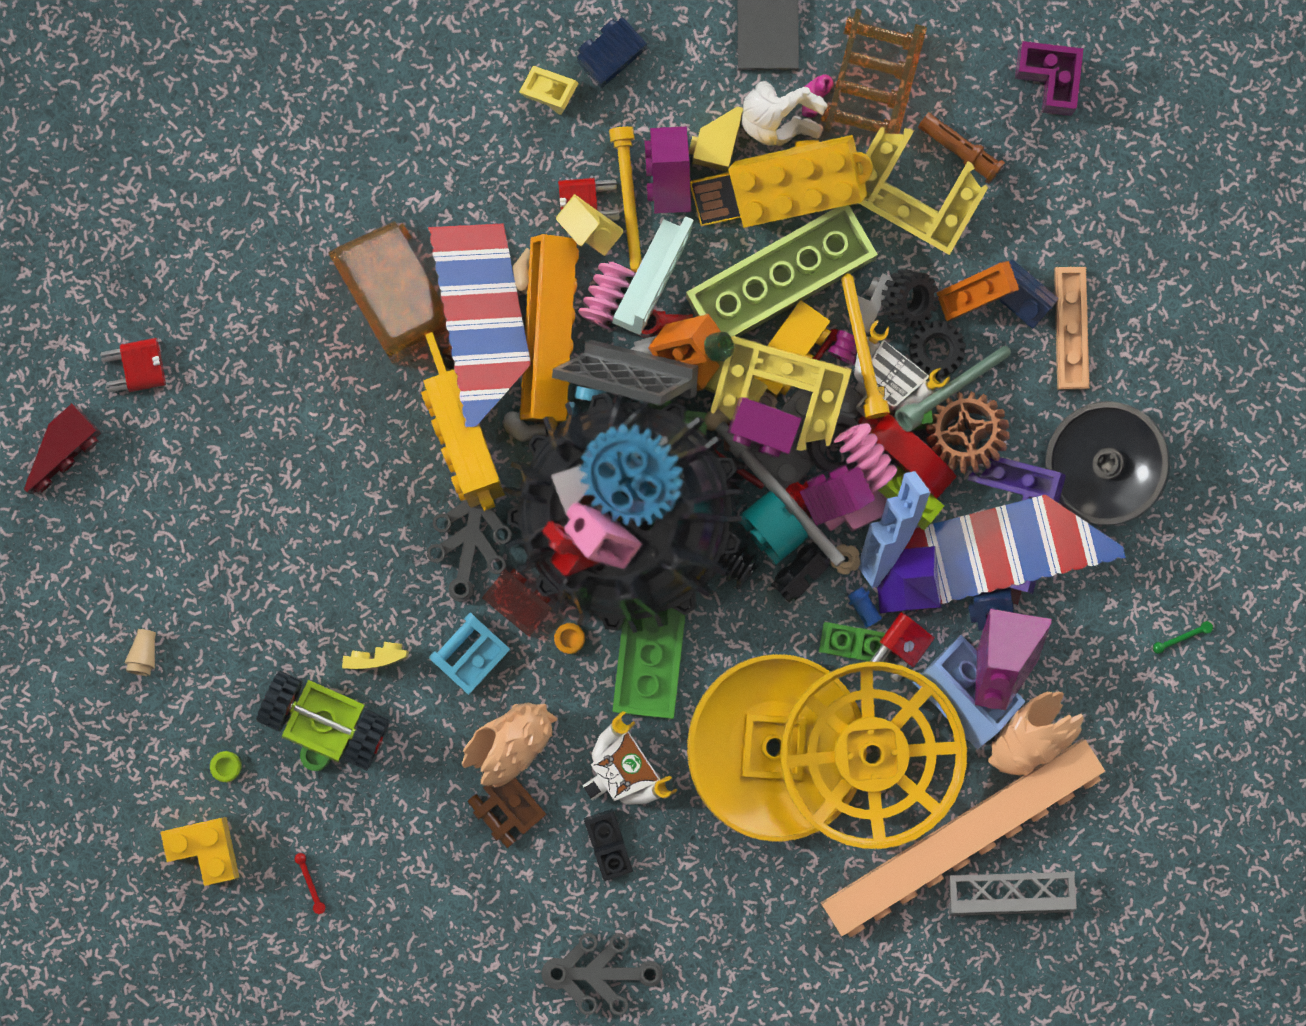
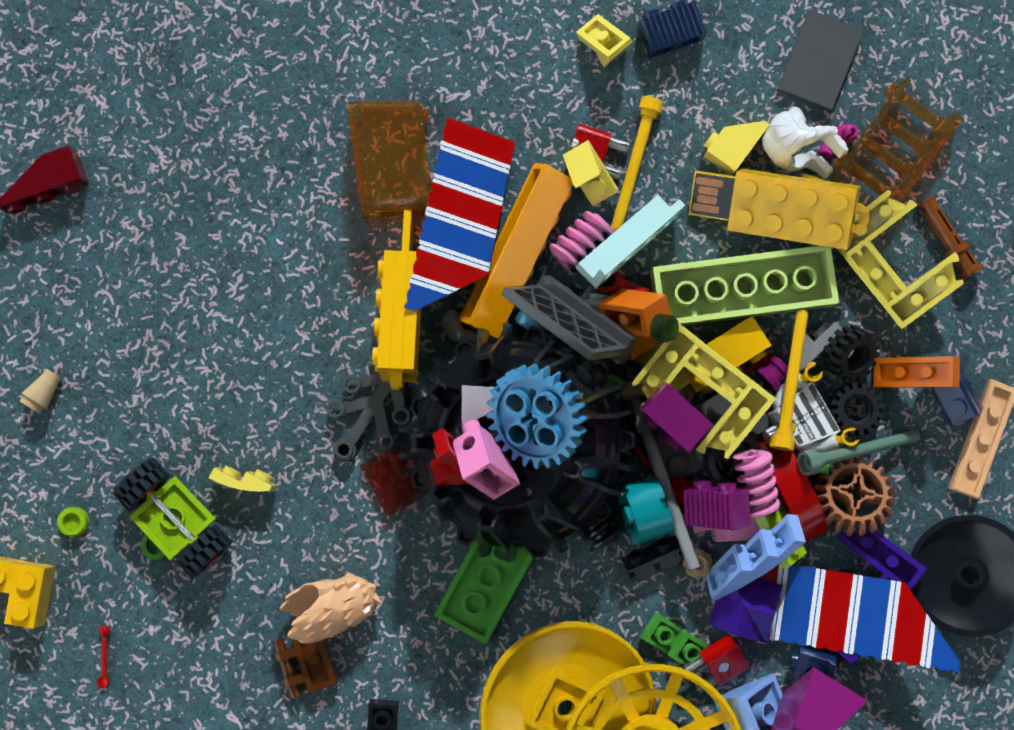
camera: 25 degrees right, 0 degrees up
(140, 363) = (146, 137): red piece -> none
(478, 659) = (333, 519): medium azure plate -> none
(521, 272) = (512, 191): tan arm -> none
(569, 638) = (422, 533): light orange tile -> none
(624, 768) = (423, 672): torso -> none
(669, 165) = (683, 149): magenta brick -> none
(864, 606) = (697, 613): blue pin -> none

